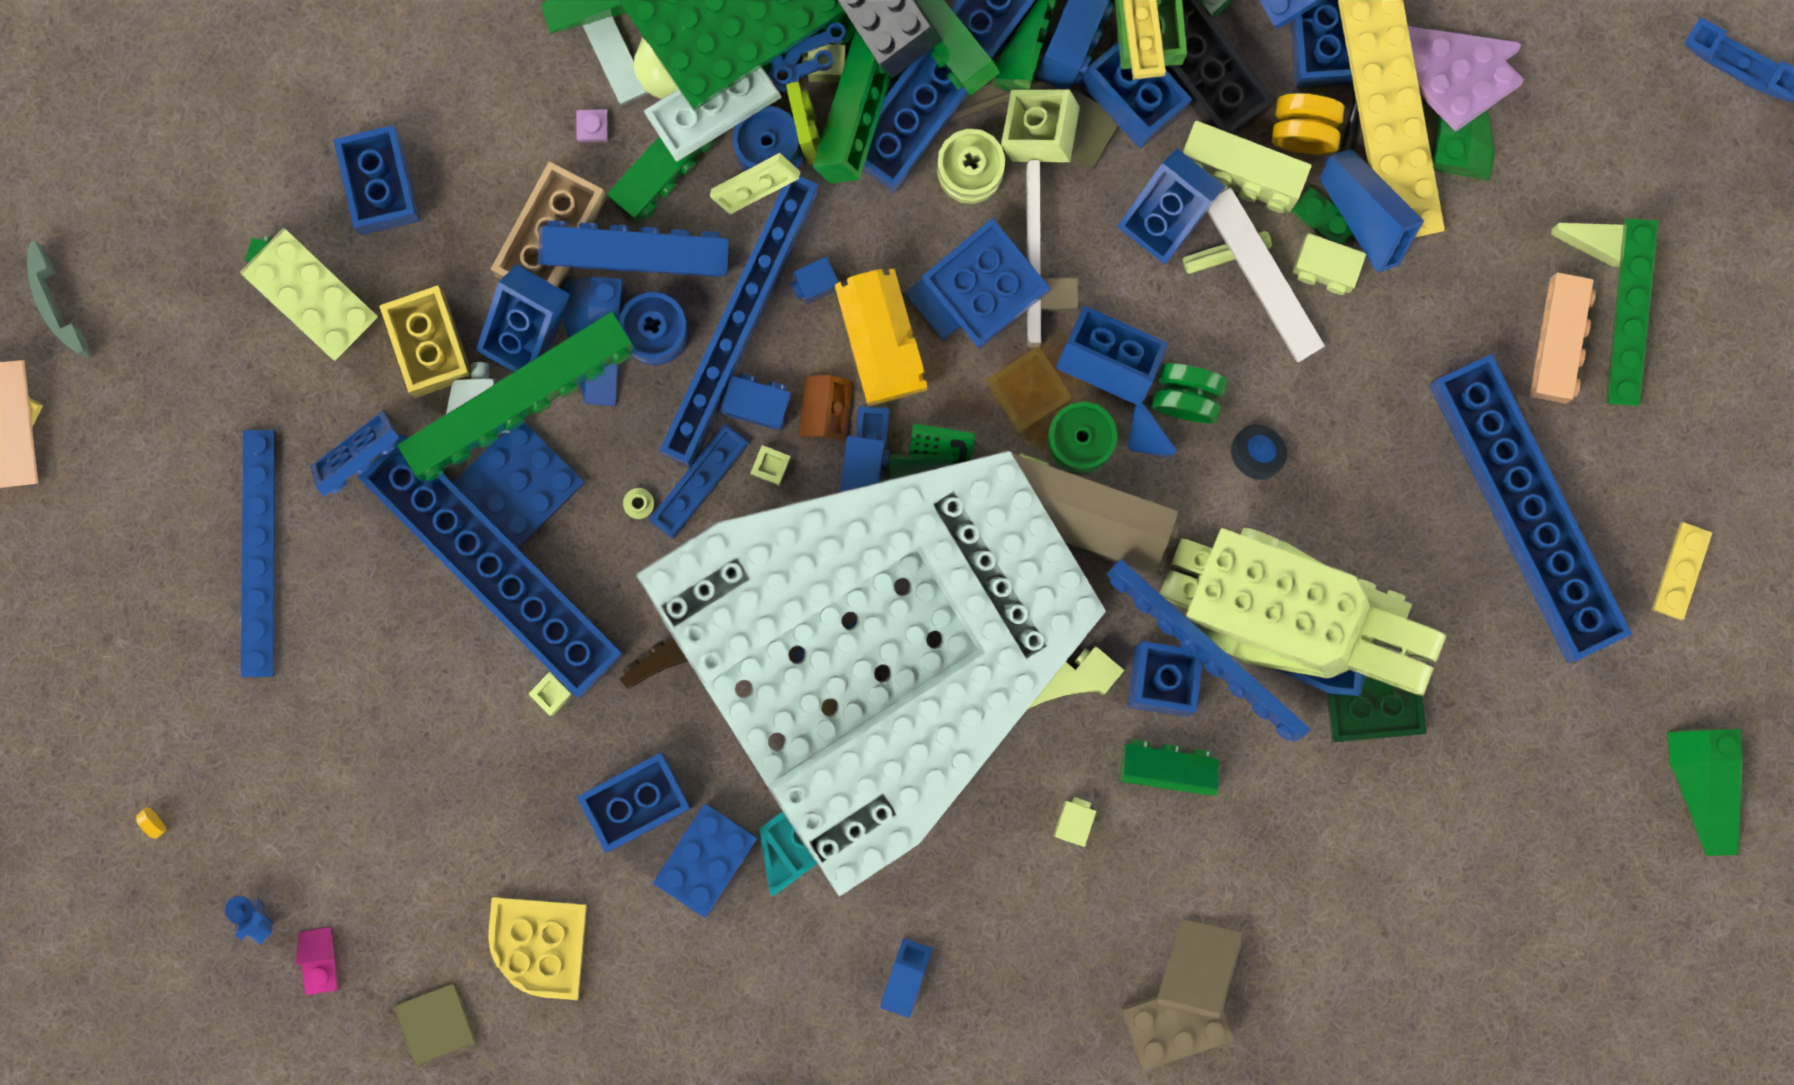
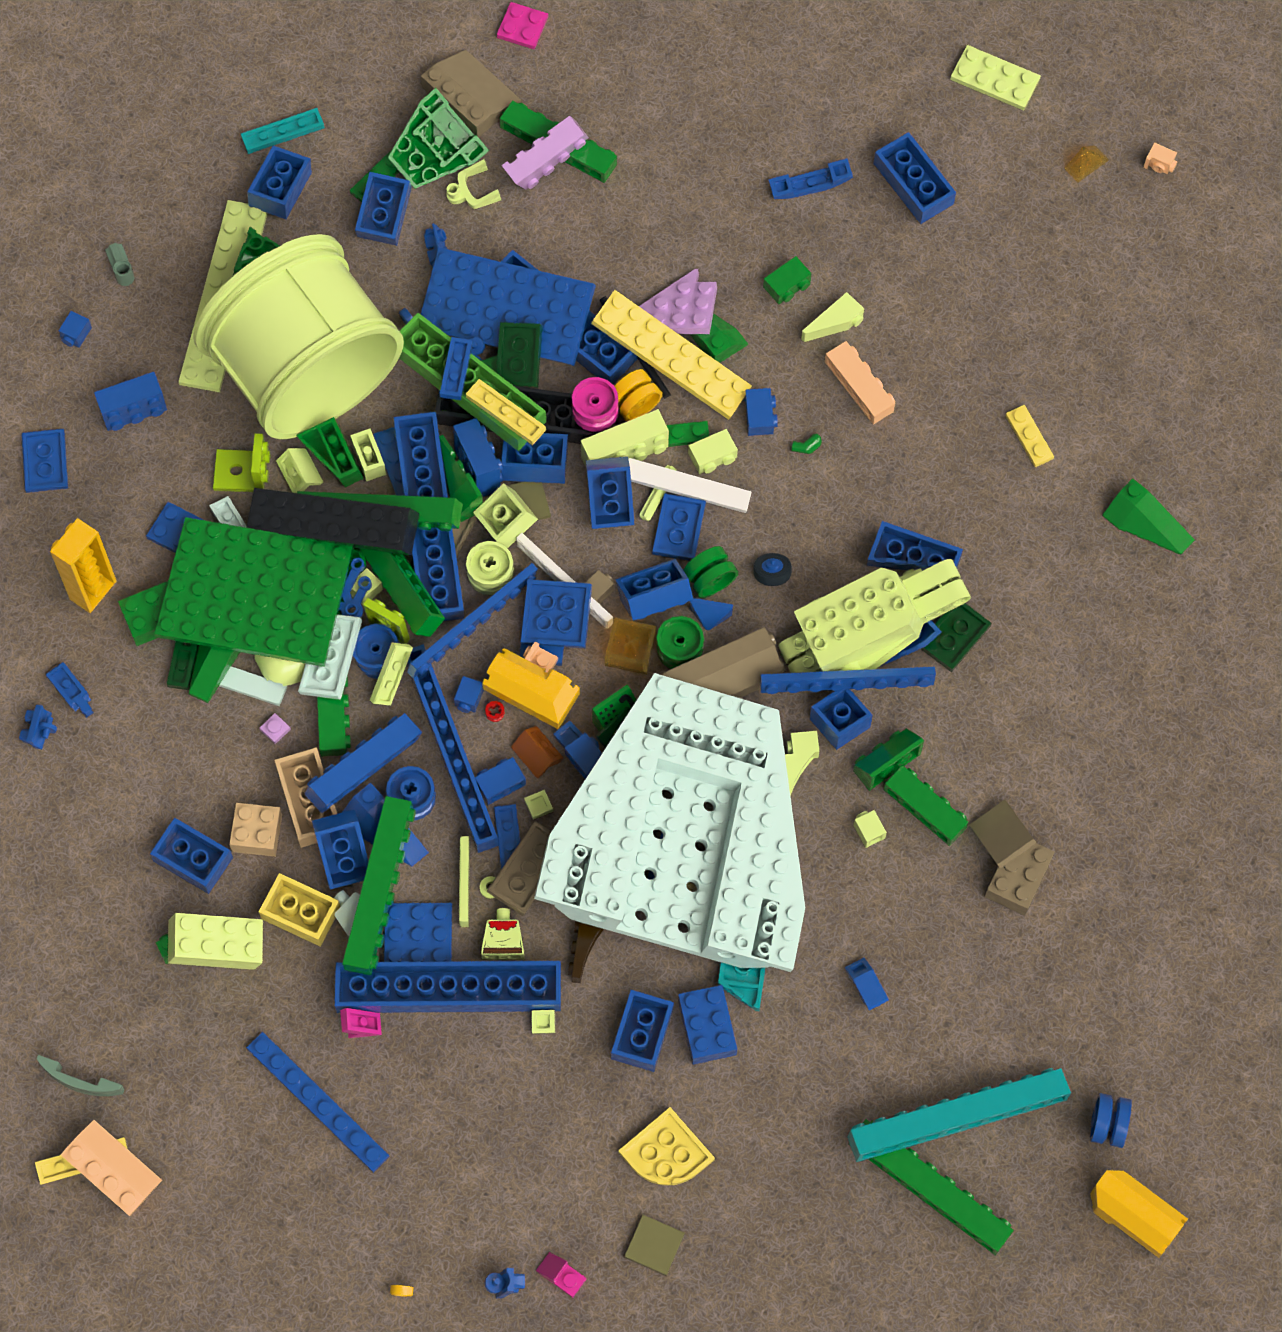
camera: 45 degrees left, 15 degrees down
(354, 454) = (321, 995): blue plate -> none
(372, 516) = (360, 1023): none -> dark pink slope
(466, 214) = (255, 829): none -> tan brick
(596, 568) = (502, 938): none -> yellowish green torso
(616, 472) = (464, 882): none -> yellowish green tile
(671, 521) = (519, 876): none -> dark tan tile
(830, 315) = (492, 705): none -> red bush
(880, 208) = (468, 625): none -> blue plate
(923, 314) = (540, 657): none -> light nougat bracket
(1157, 857) = (926, 805): none -> green brick
(1210, 311) = (679, 527): none -> blue plate
(1252, 77) = (595, 404): none -> dark pink wheel
(1371, 209) = (708, 406): blue slope -> none
(1421, 573) = (908, 550): none -> blue wedge
(1423, 267) = (760, 411): none -> blue brick
(1437, 354) = (808, 446): none -> green arm
(1529, 509) = (928, 473): blue brick -> none
(1602, 151) = (787, 280): none -> green brick
(1631, 312) = (879, 339): green plate -> none

